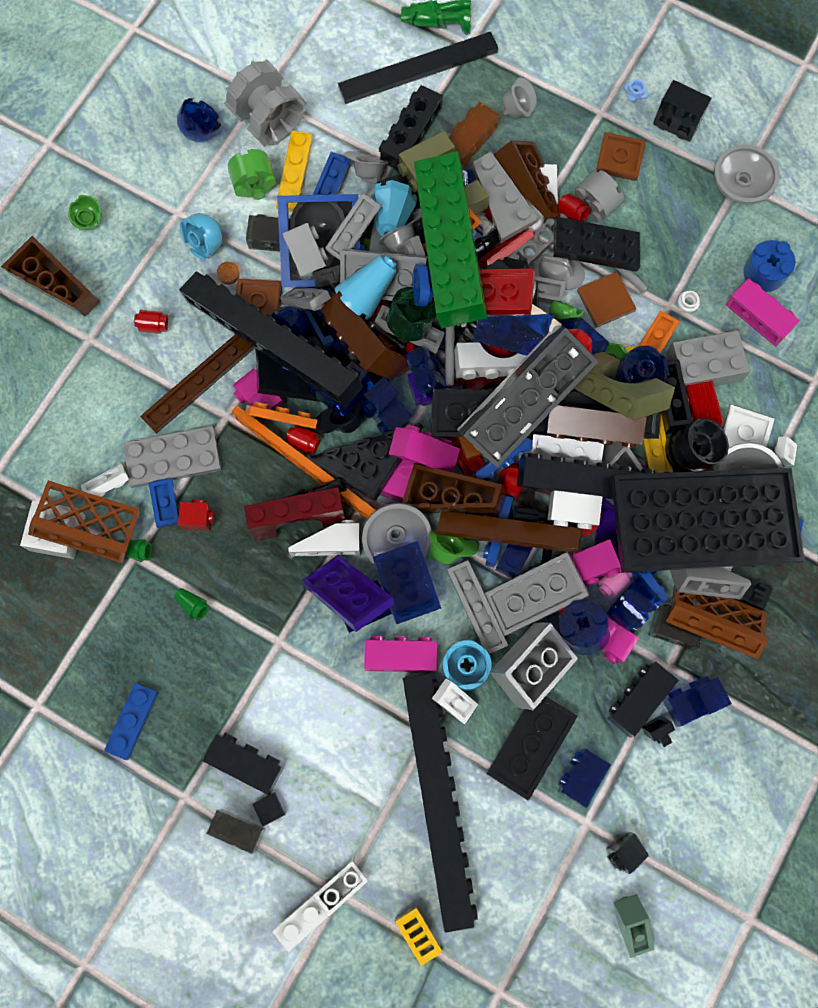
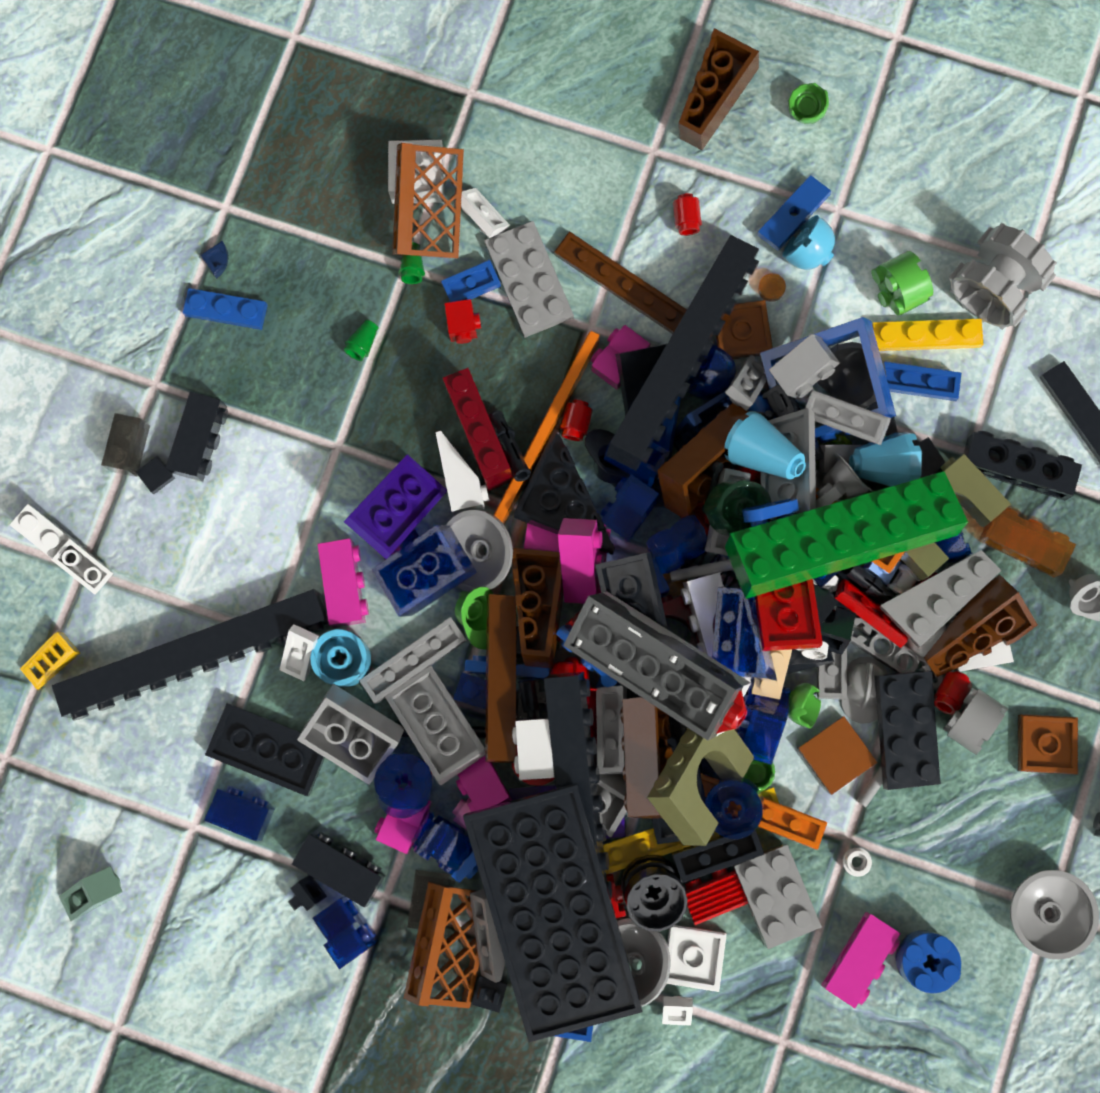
camera: 90 degrees right, 5 degrees up
(82, 722) = (216, 258): none -> dark blue tile
(167, 235) = (802, 202): none -> blue tile
(197, 120) = (963, 202): clear blue cylinder -> none
(263, 233) = (830, 312): clear smoke brick -> none
(281, 414) = (595, 387): orange plate -> none
(367, 166) = (954, 420): light grey piece -> none
(627, 853) = (162, 874): black slope -> none

